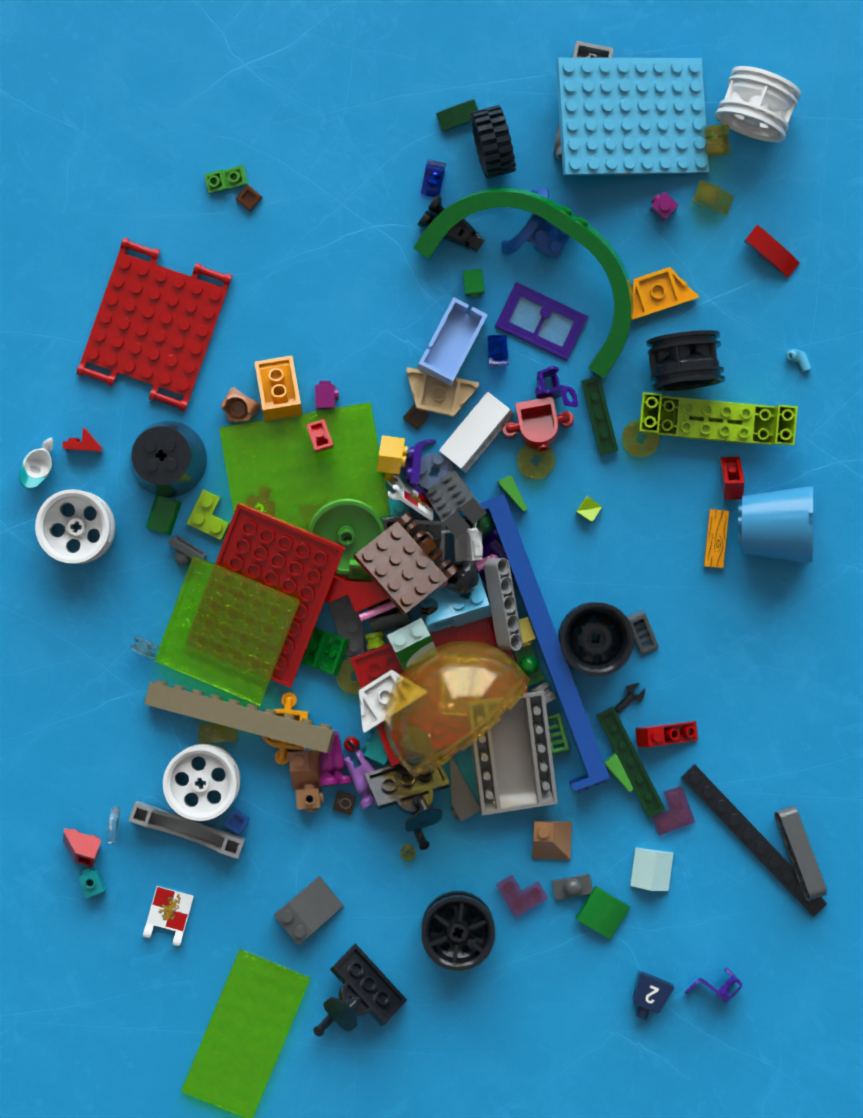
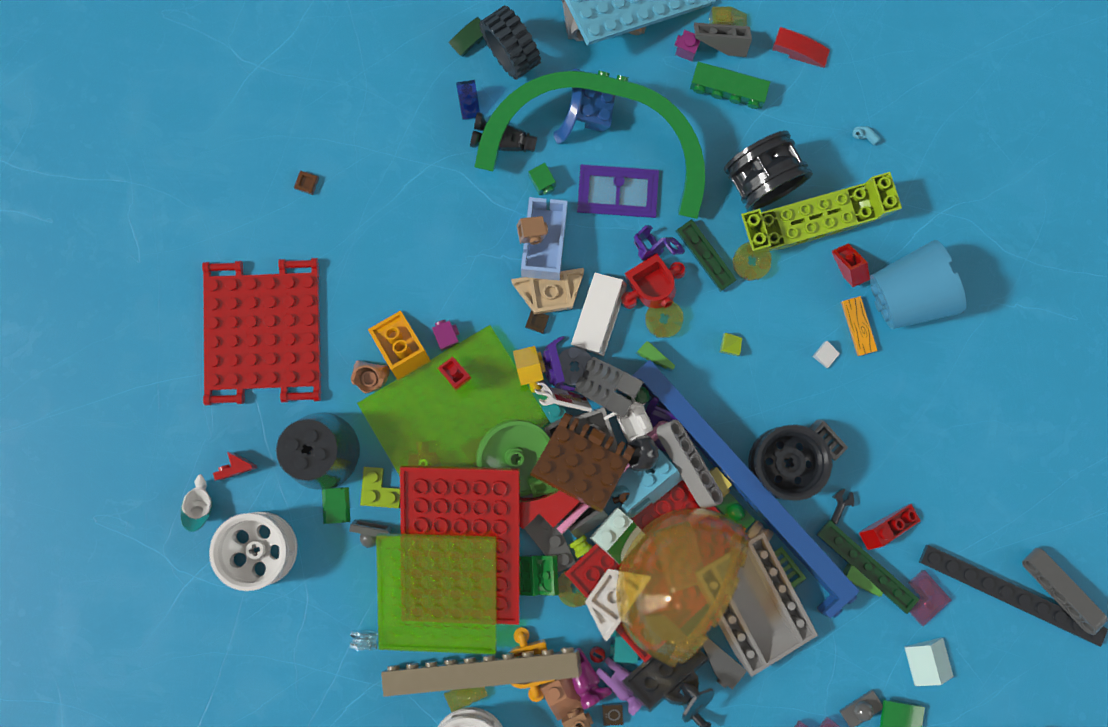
camera: 20 degrees left, 5 degrees down
(226, 179) = (279, 174): bright green slope -> none
(443, 331) = (532, 230): none -> medium nougat brick
(497, 350) = (589, 232): clear blue slope -> none
(551, 839) = (823, 671): medium nougat slope -> none
(659, 292) = (716, 122): light orange wing -> none
(674, 553) = (826, 354): none -> white slope
(688, 261) = (729, 85): none -> green brick
(701, 215) = (727, 39): none -> dark grey slope

